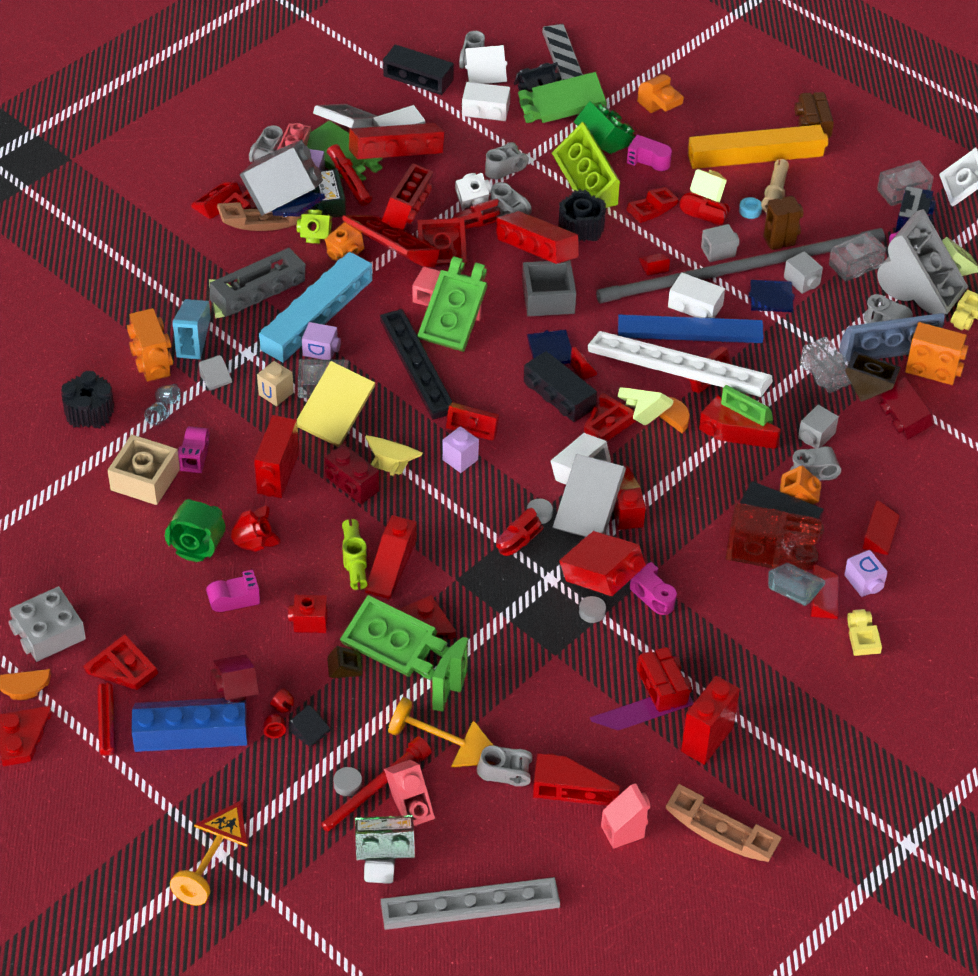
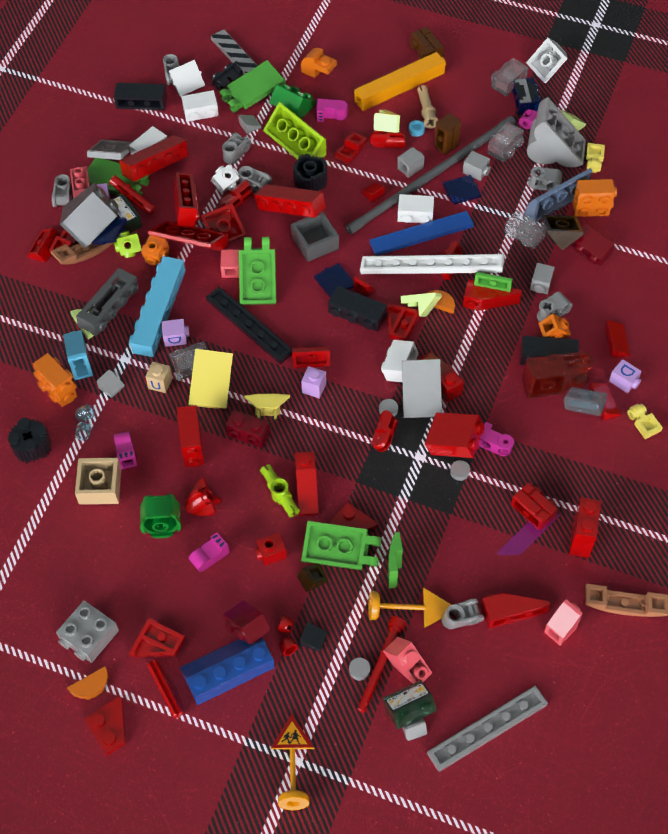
camera: 20 degrees left, 10 degrees up
(538, 139) = (249, 123): none -> light grey slope

